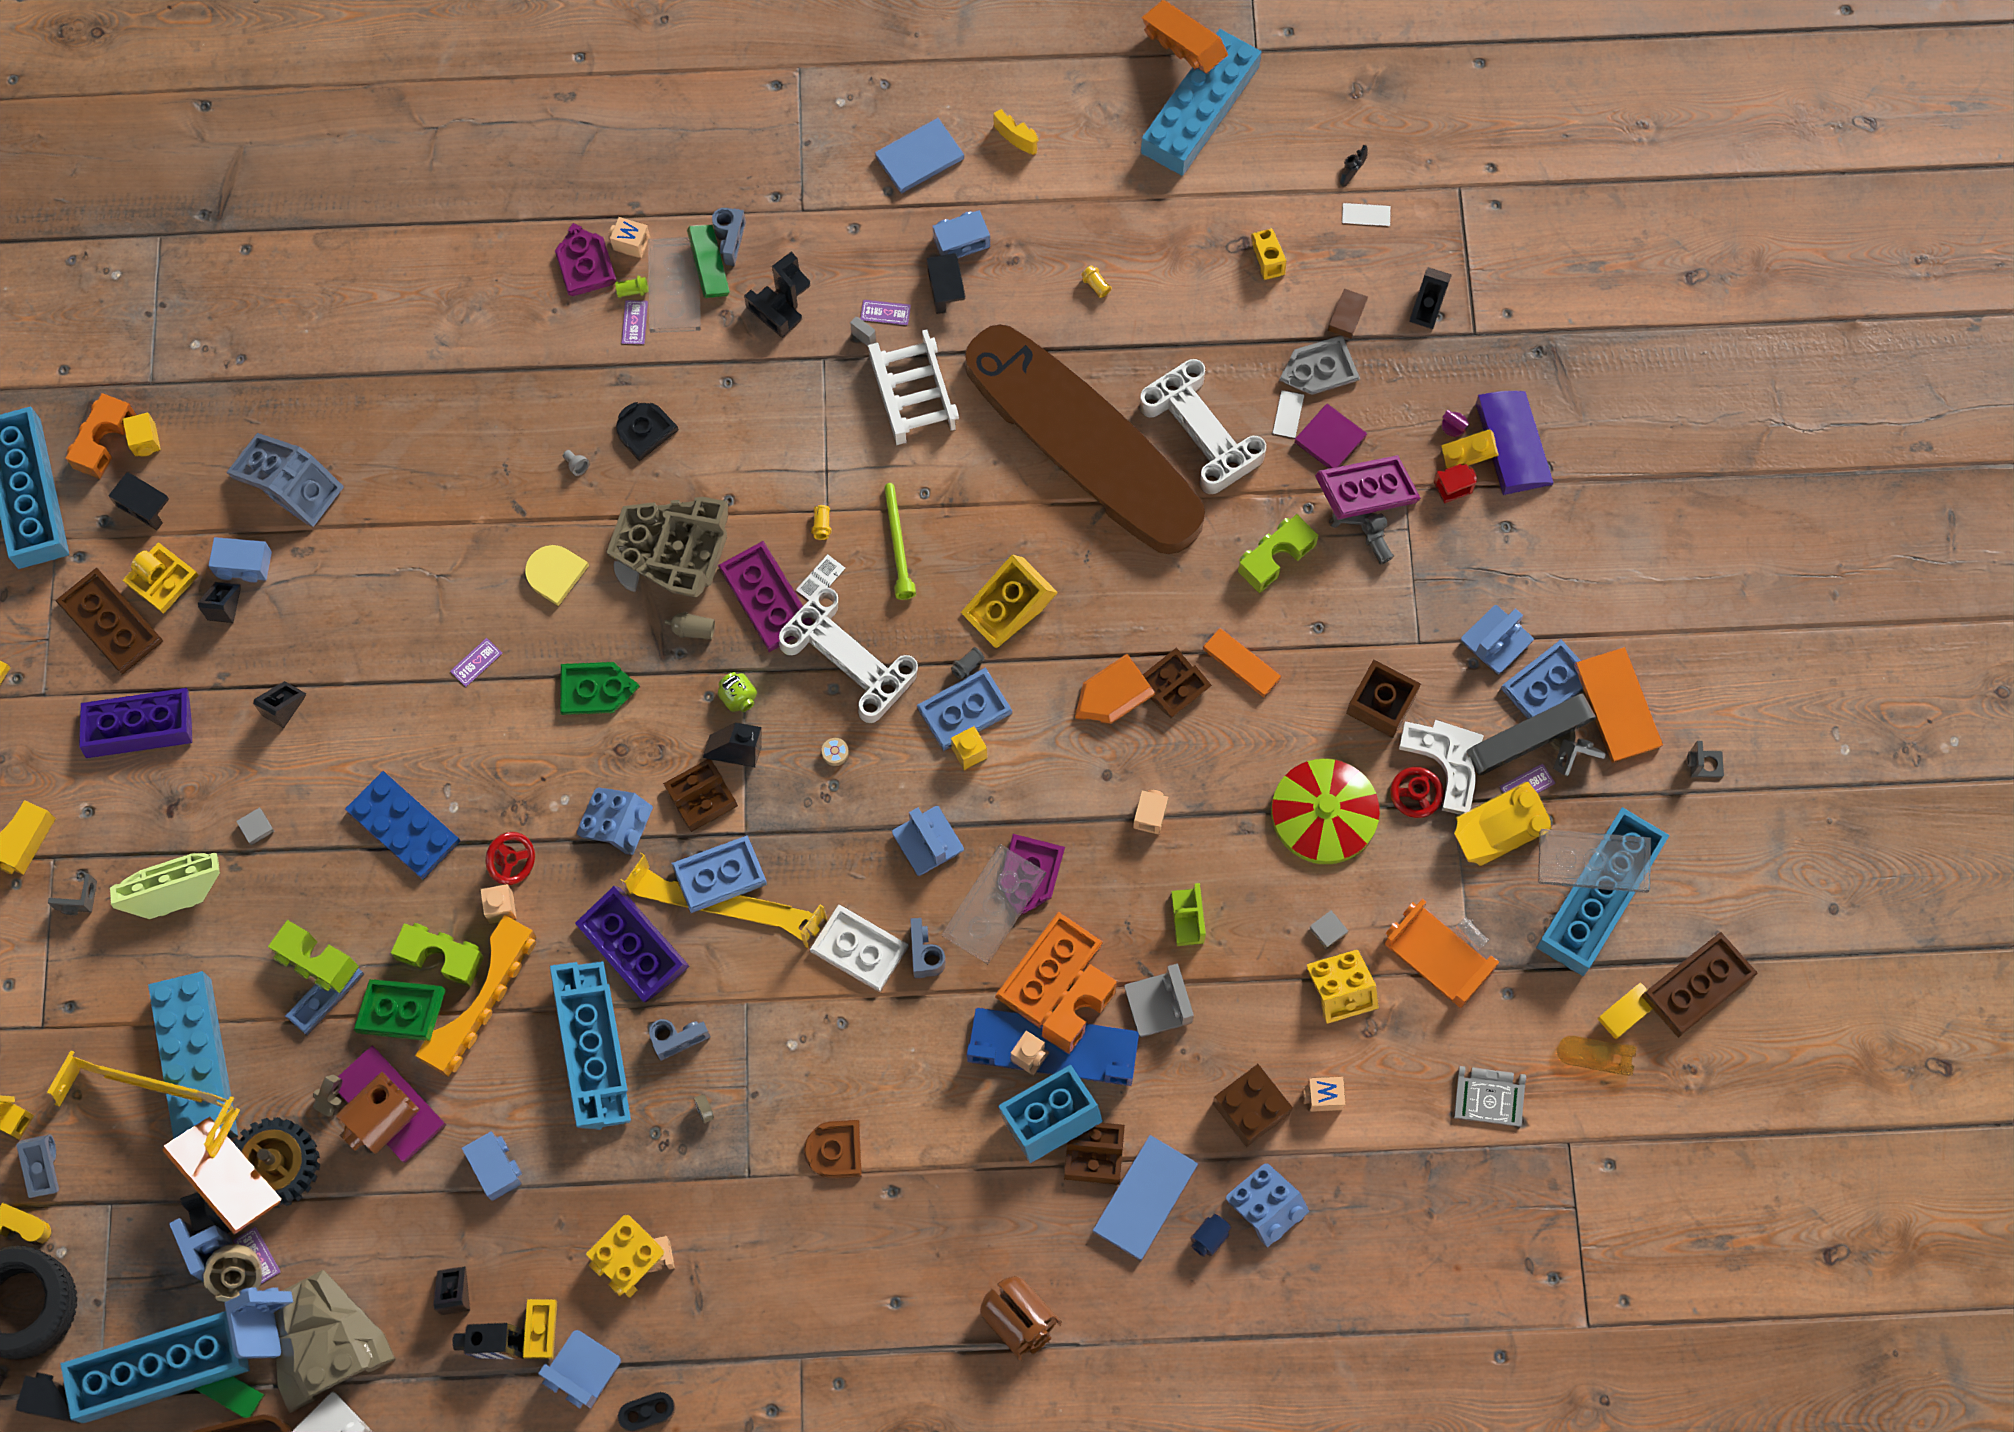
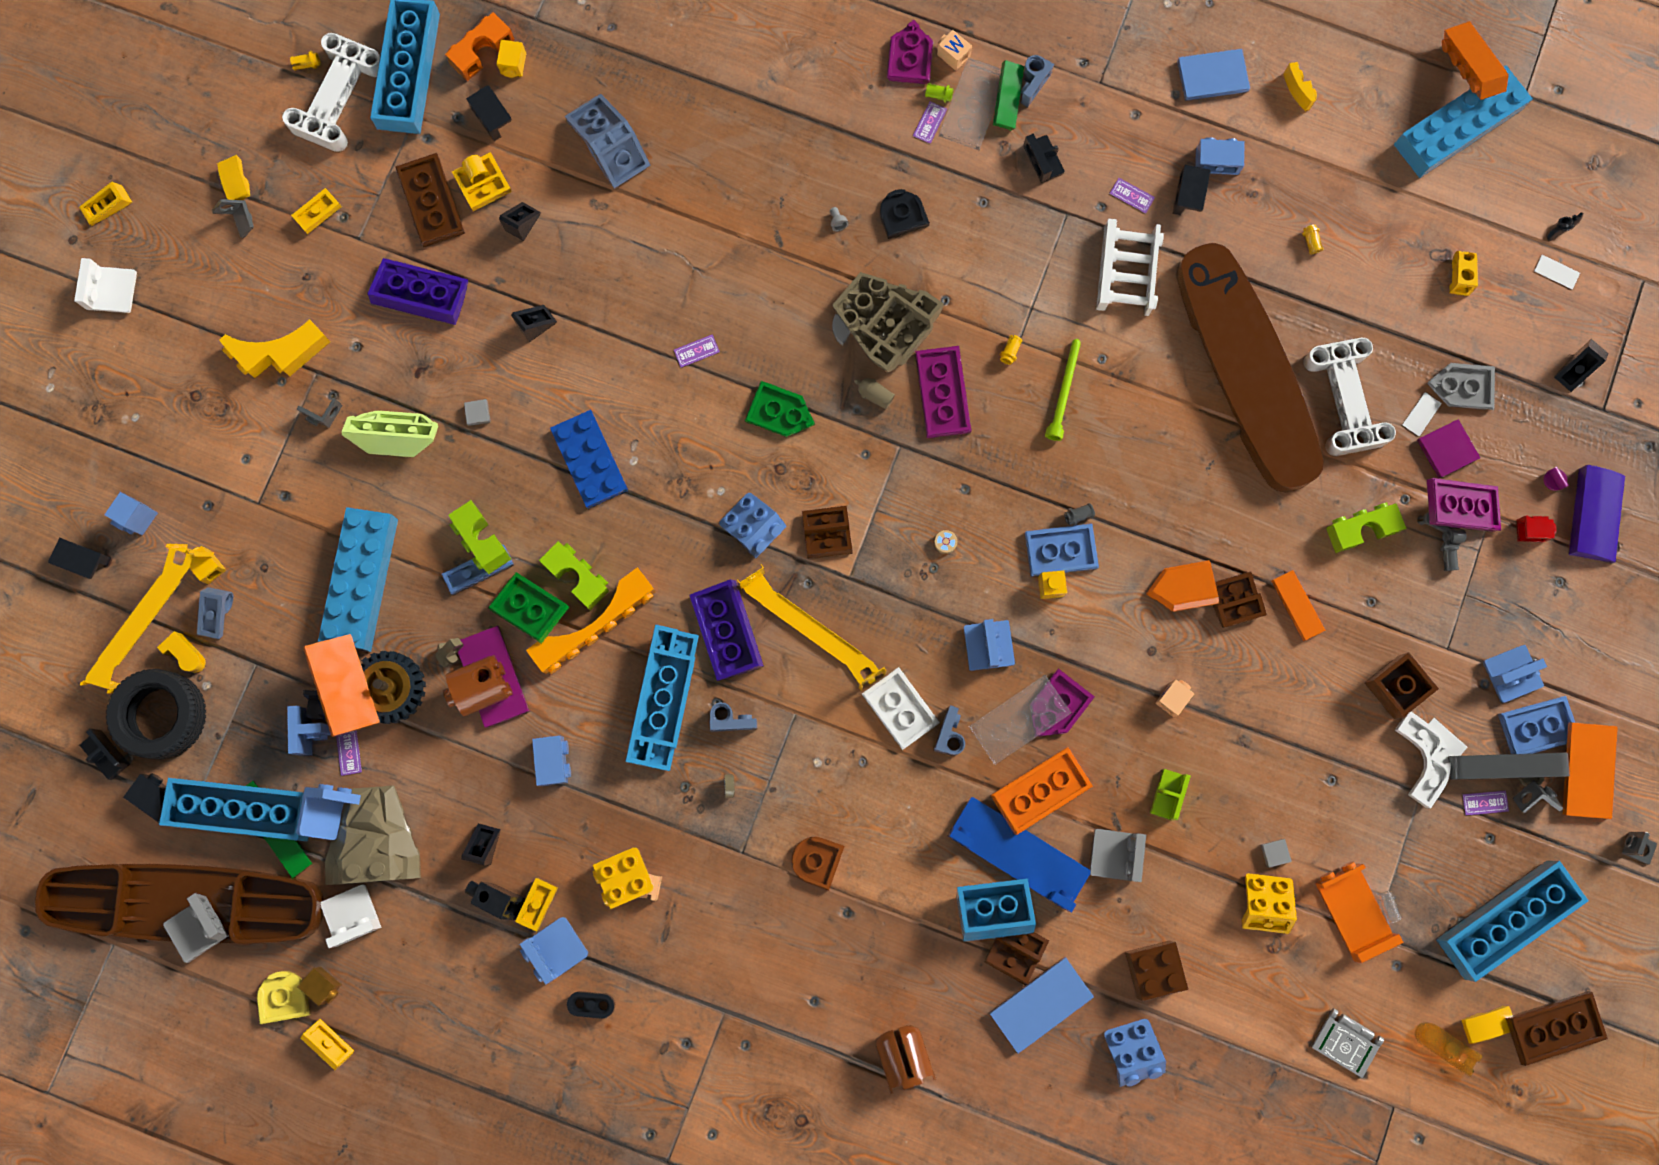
camera: 20 degrees right, 10 degrees up
(71, 1068) = (261, 550): yellow piece -> none
(232, 1270) = (323, 761): tan cylinder -> none
(240, 559) = (547, 191): medium blue brick -> none
(498, 853) = (653, 514): red piece -> none
(498, 902) = (636, 555): light nougat brick -> none
(554, 572) = (785, 303): light yellow tile -> none
(719, 874) = (815, 603): medium blue tile -> none
(735, 745) = (869, 504): black slope -> none
(737, 692) = (888, 461): lime head -> none
(789, 278) = (1068, 137): black panel -> none
(820, 577) = (991, 395): white sticker -> none
(848, 654) = (988, 468): white beam -> none
(863, 331) = (1108, 205): light grey tile -> none
(1008, 600) = (1133, 477): yellow slope -> none
(1029, 1053) = (998, 854): light nougat brick -> none
(1090, 990) = (1035, 843): orange arch -> none
(1210, 1235) = (1079, 1059): dark blue brick -> none
(1324, 1094) = (1217, 986): light nougat brick -> none
(1325, 811) = (1314, 755): dish -> none
(1347, 313) = (1507, 350): reddish brown tile -> none
(1417, 782) = (1402, 768): red piece -> none
(1470, 449) = (1560, 507): yellow plate -> none
(1501, 824) = (1454, 829): yellow slope -> none
(1594, 860) = (1518, 896): clear tile -> none

